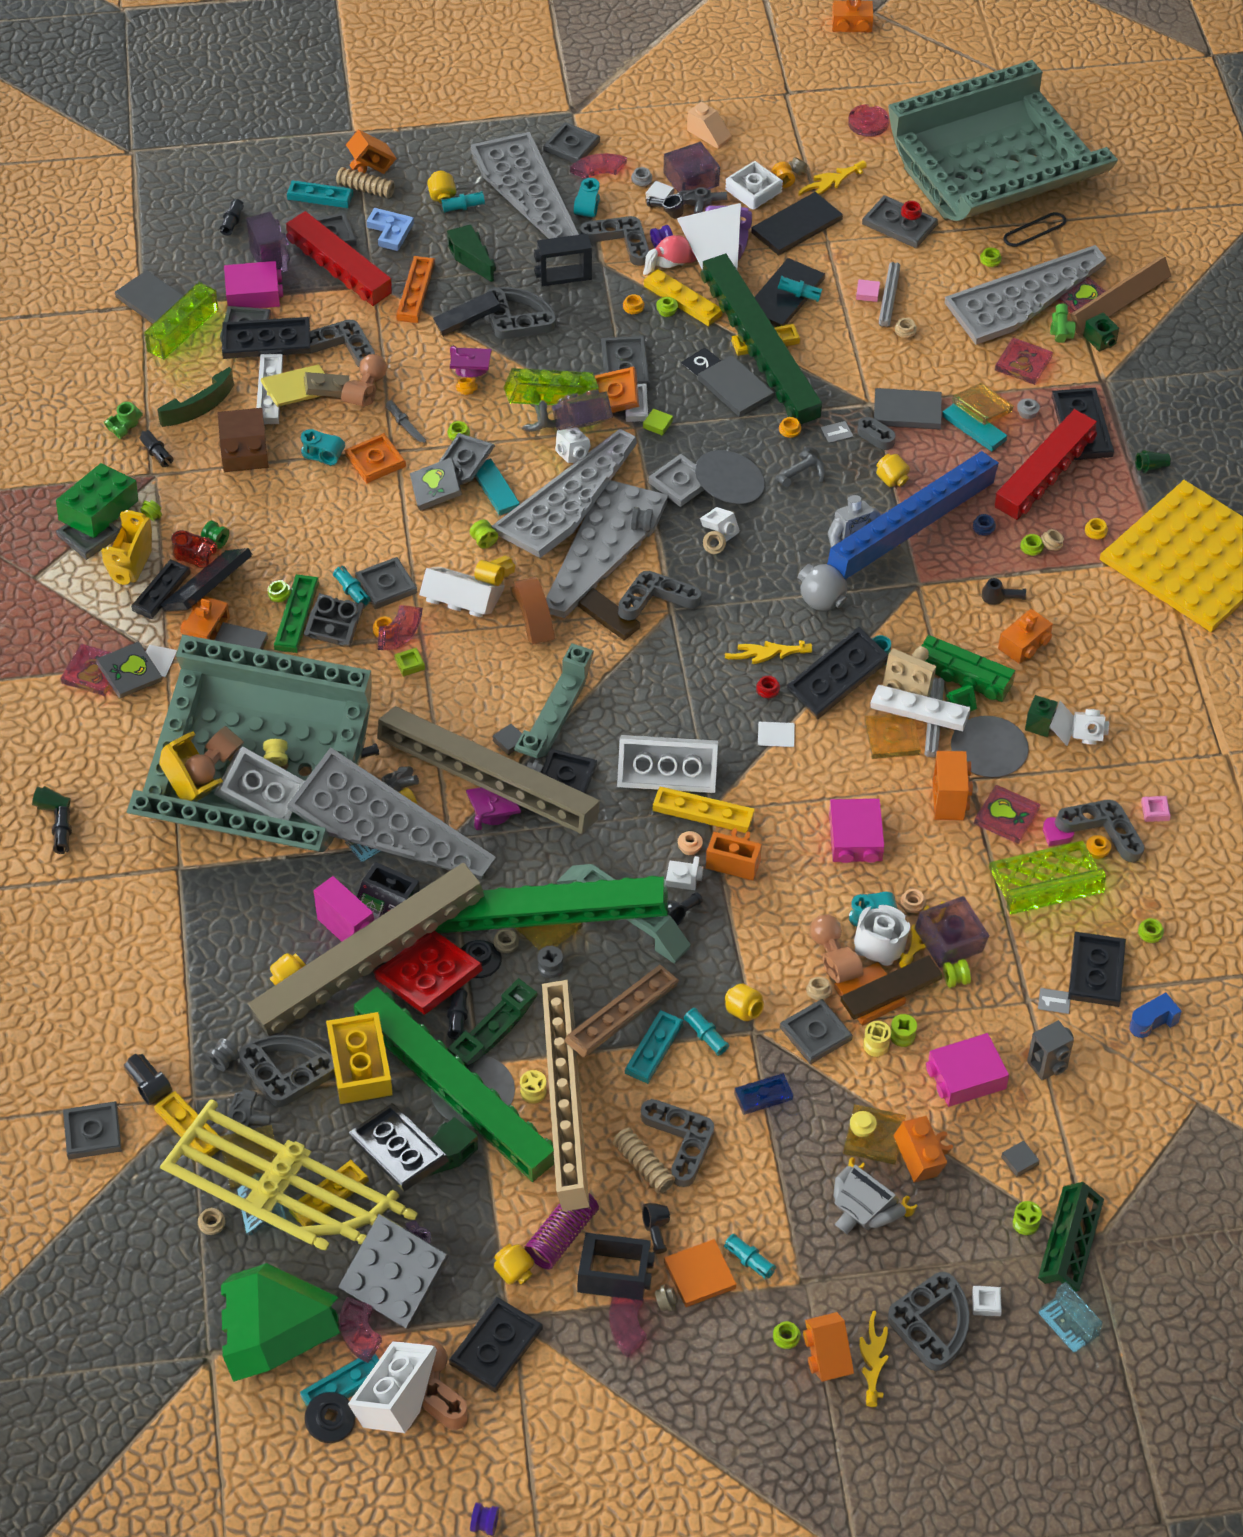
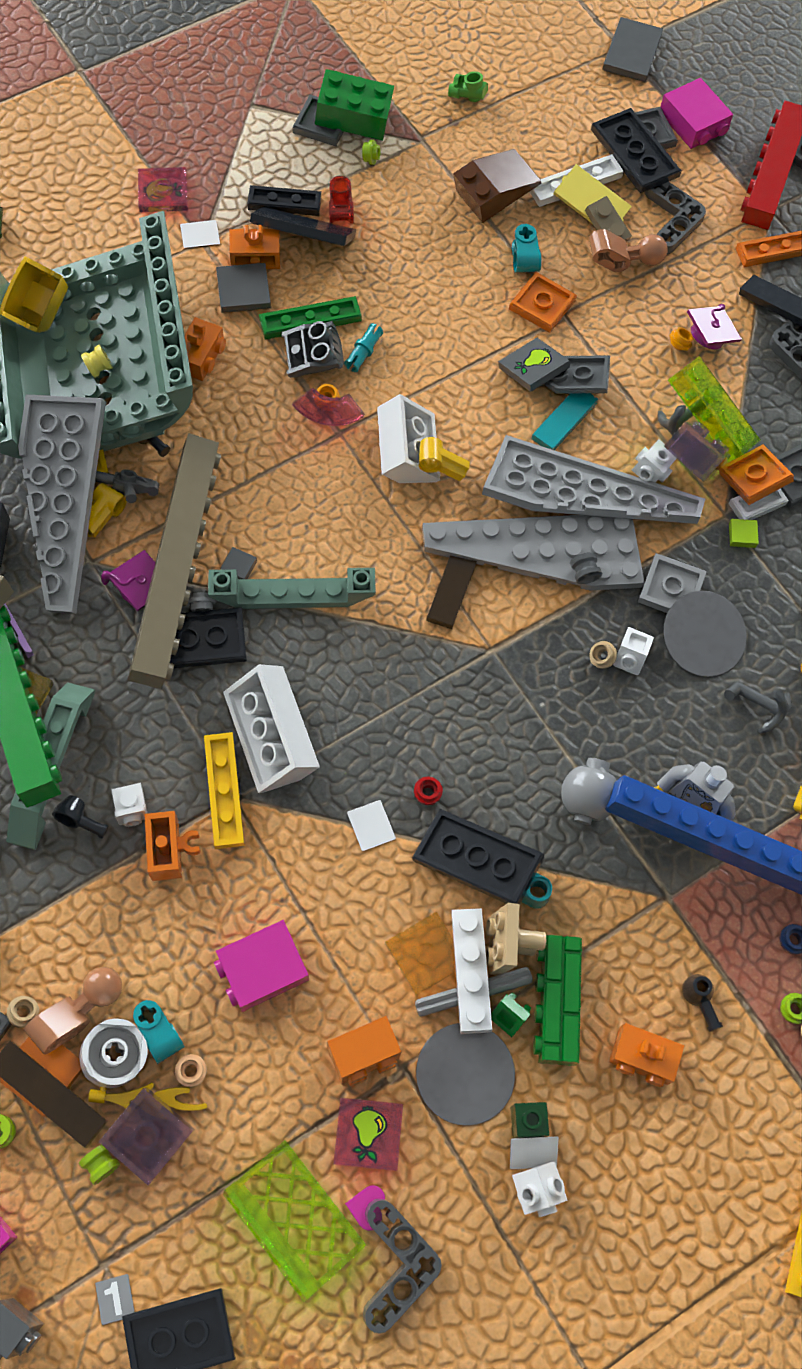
camera: 60 degrees right, 15 degrees up
(129, 670) = (179, 211): dark grey tile -> none
(130, 549) = (304, 153): yellow piece -> none
(156, 448) = (449, 126): black axle -> none
(181, 320) = (615, 77): clear neon green brick -> none
(199, 404) = (527, 136): dark green slope -> none
(217, 534) = (367, 211): green wheel -> none
(220, 747) = (68, 308): nougat beam -> none
(231, 217) = (773, 63): black pin -> none
(258, 785) = (56, 360): white slope -> none
(267, 241) = (752, 97): clear purple brick -> none
(279, 591) = (326, 291): lime plate -> none
(386, 582) = (387, 374): dark grey tile -> none
(403, 419) = (605, 304): dark grey piece -> none
(409, 662) = (297, 436): lime tile -> none
(458, 427) = (621, 353): lime plate -> none
(483, 534) = (492, 432): lime wheel -> none
(534, 610) = (408, 512): dark orange arch -> none
(689, 597) = (506, 620): dark grey beam -> none
(690, 848) = (181, 799): light nougat plate -> none
(768, 651) = (478, 770): yellow piece -> none
(1101, 851) = (373, 1278): light orange plate -> none
(1155, 808) = (460, 1323): bright pink tile -> none

